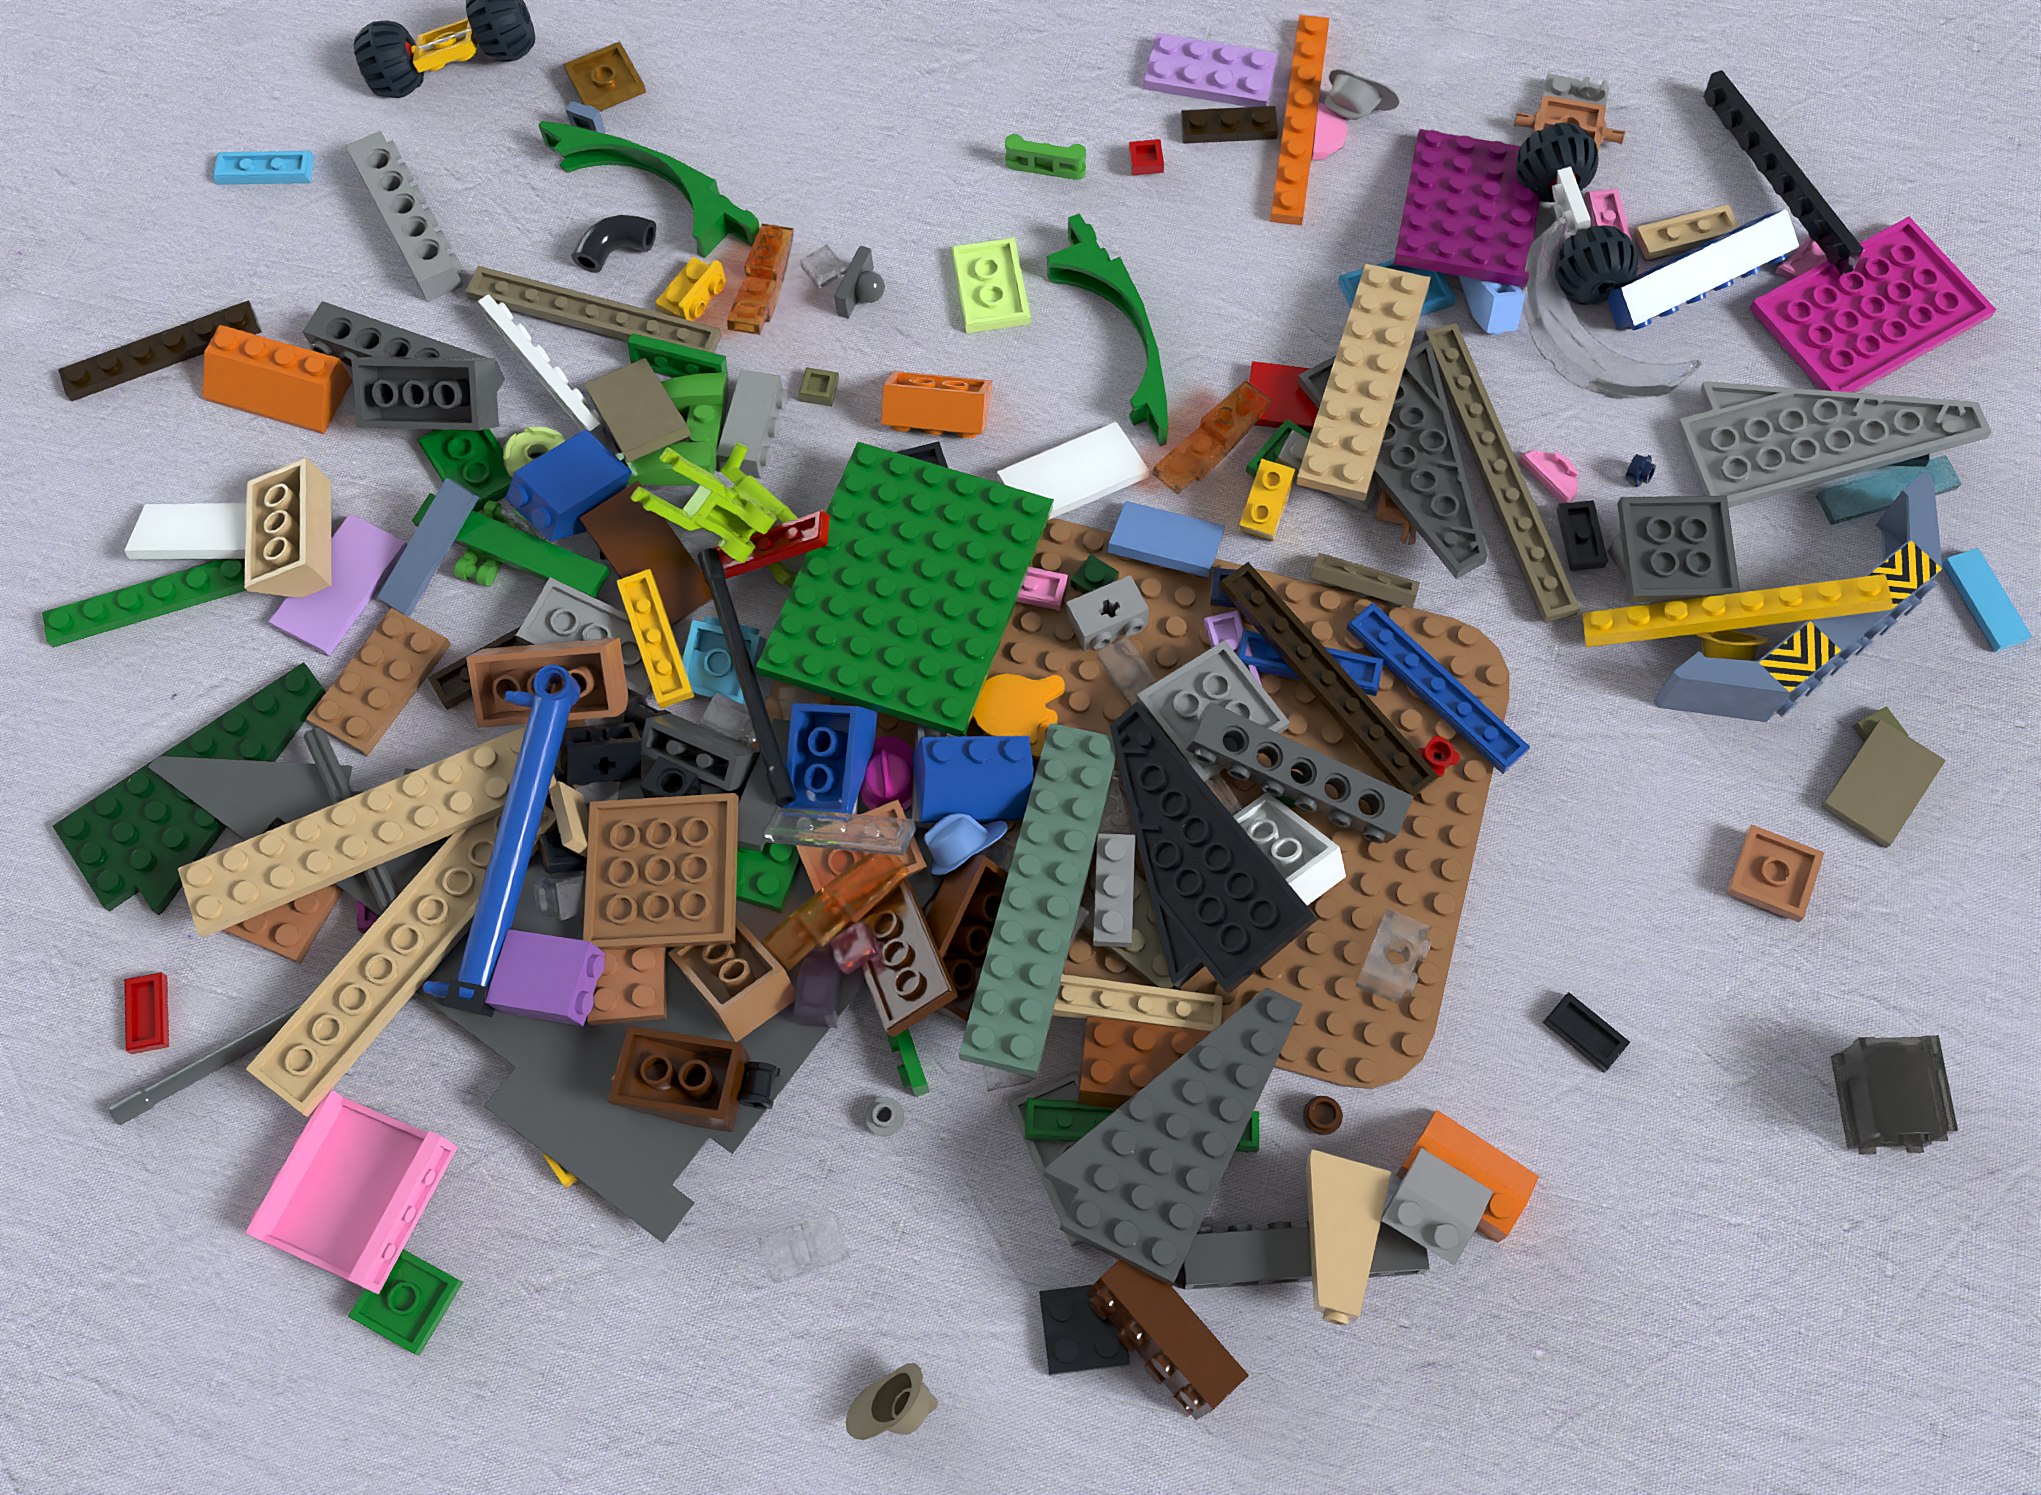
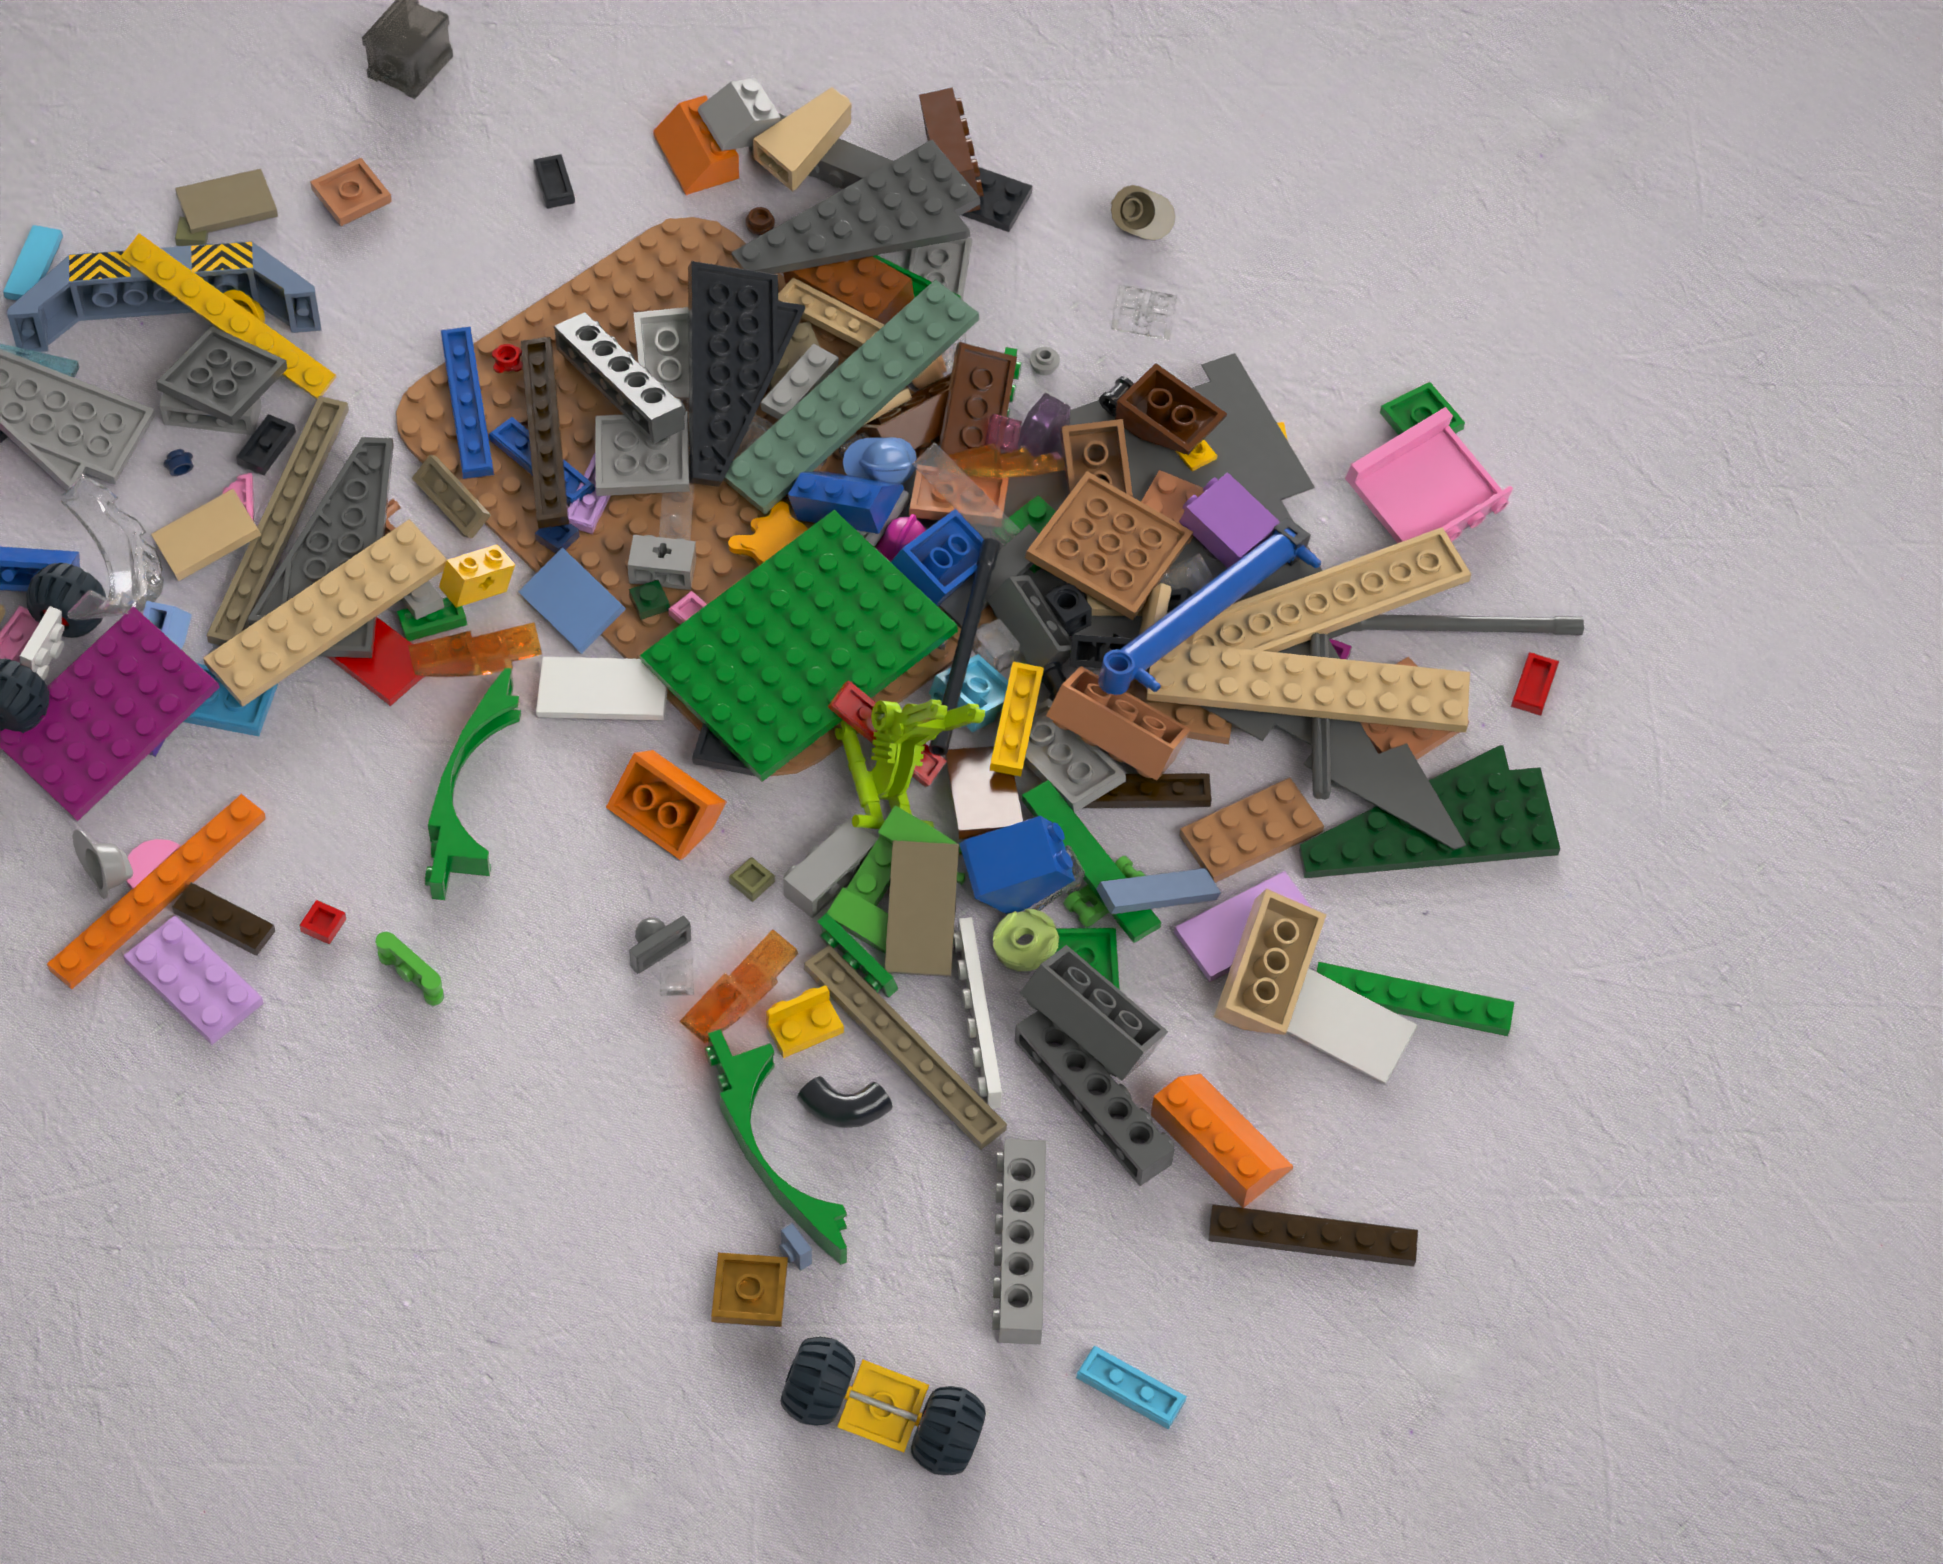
camera: 155 degrees left, 10 degrees down
(990, 285) = (544, 888): yellowish green tile -> none
(1401, 935) = (645, 262): clear brick -> none
(1546, 413) = (206, 534): none -> tan tile

